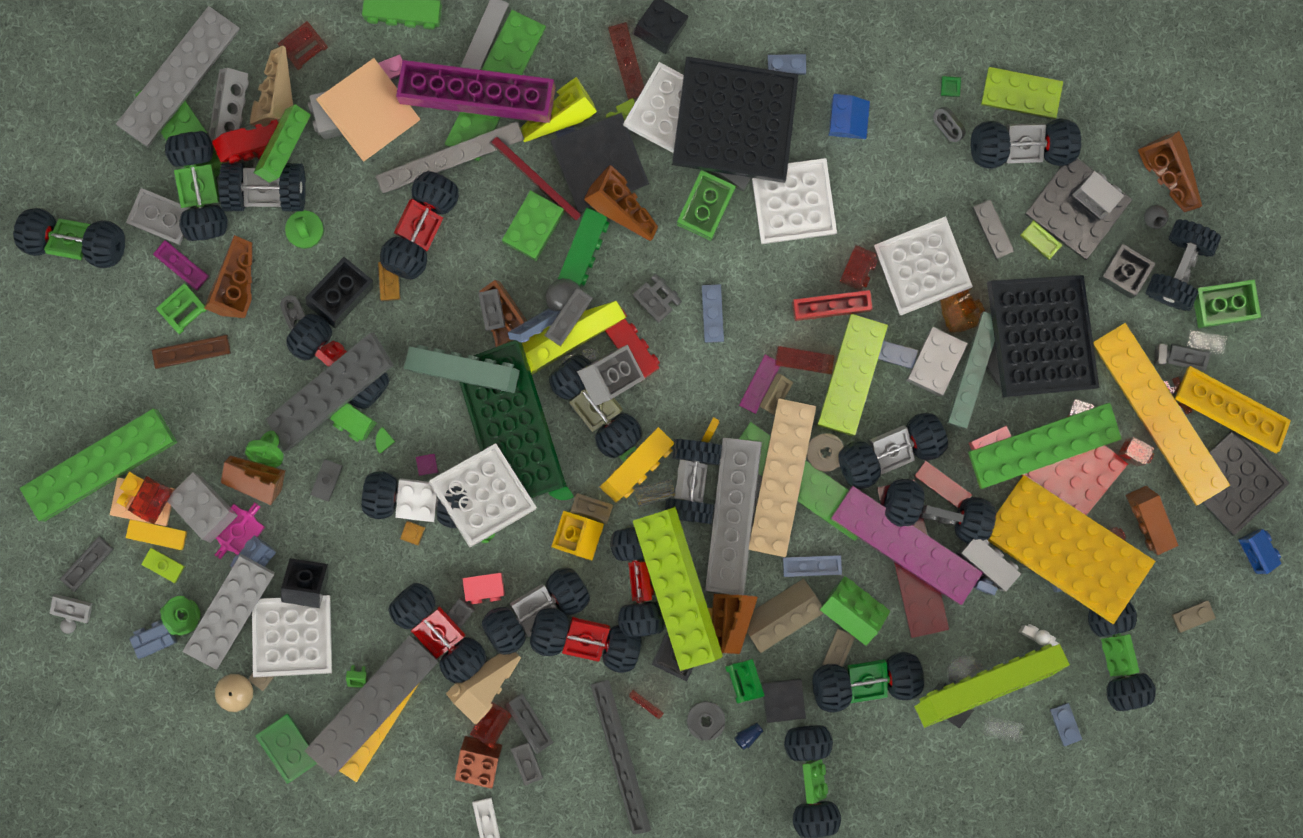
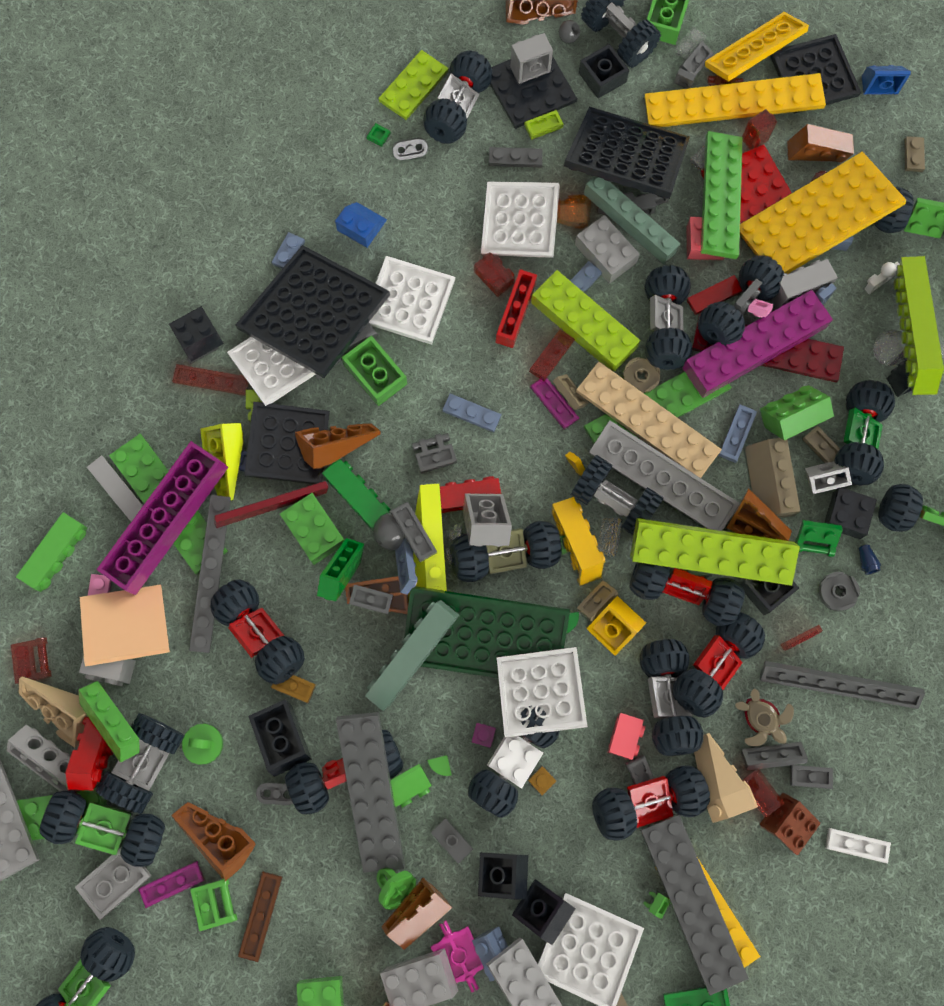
camera: 65 degrees left, 10 degrees down
(317, 536) = (503, 875): none -> black brick
(504, 270) = (340, 569): none -> green brick
(556, 701) = (764, 719): none -> dark tan animal
(805, 664) = (825, 478): none -> light grey brick
(938, 531) = (760, 308): none -> bright pink plate

